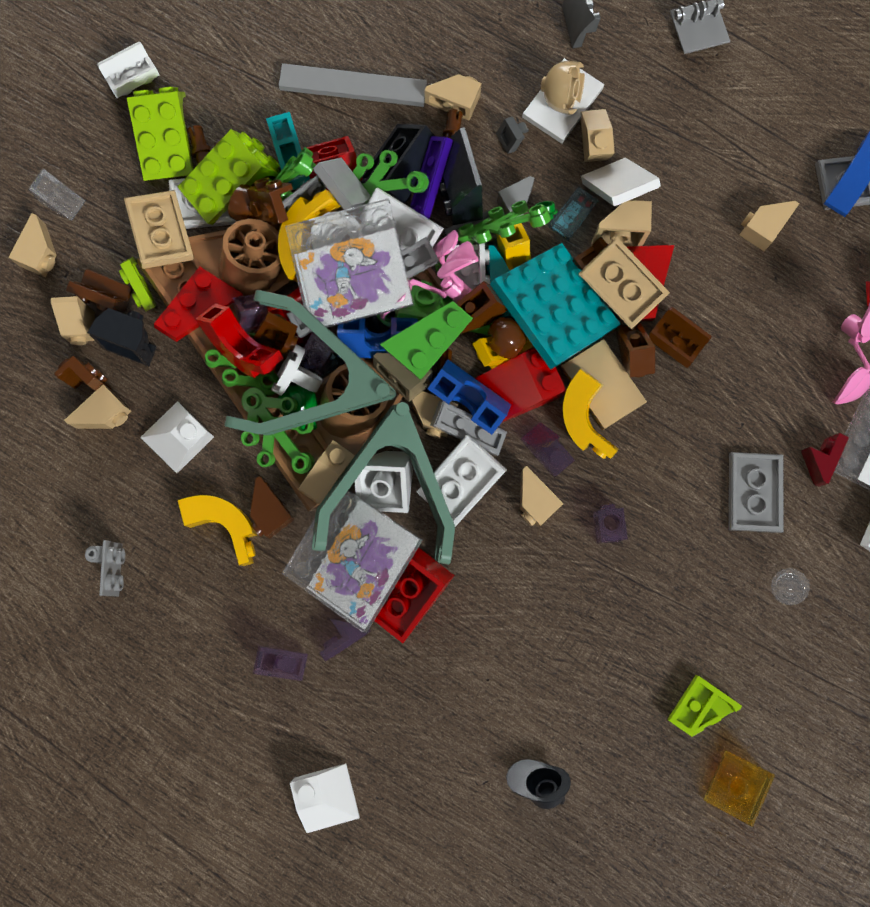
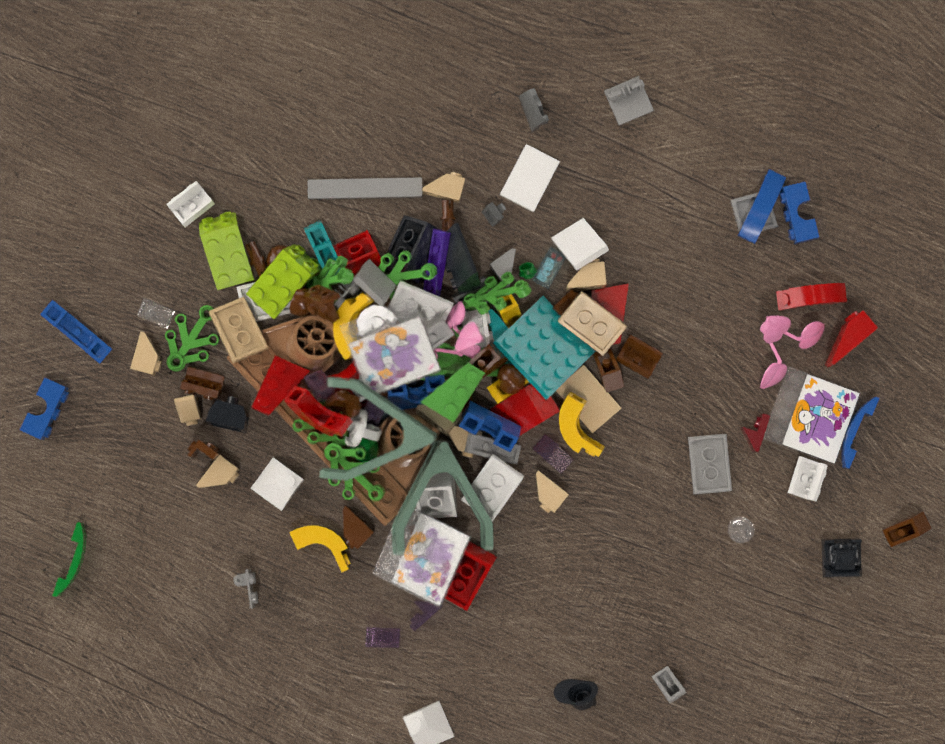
camera: 15 degrees left, 5 degrees up
(96, 239) = (189, 342): none -> bright green plant
(142, 293) = (225, 369): lime wing -> none
(326, 472) = (394, 497): tan slope -> none
(563, 86) = (527, 173): tan cylinder -> none
(597, 135) = (558, 204): tan slope -> none
(604, 535) = (611, 510): clear purple brick -> none
(670, 790) = (668, 684): none -> light grey slope
(701, 707) = (685, 625): lime wing -> none
(739, 788) = (716, 676): clear yellow slope -> none
(767, 223) = (696, 257): tan slope -> none

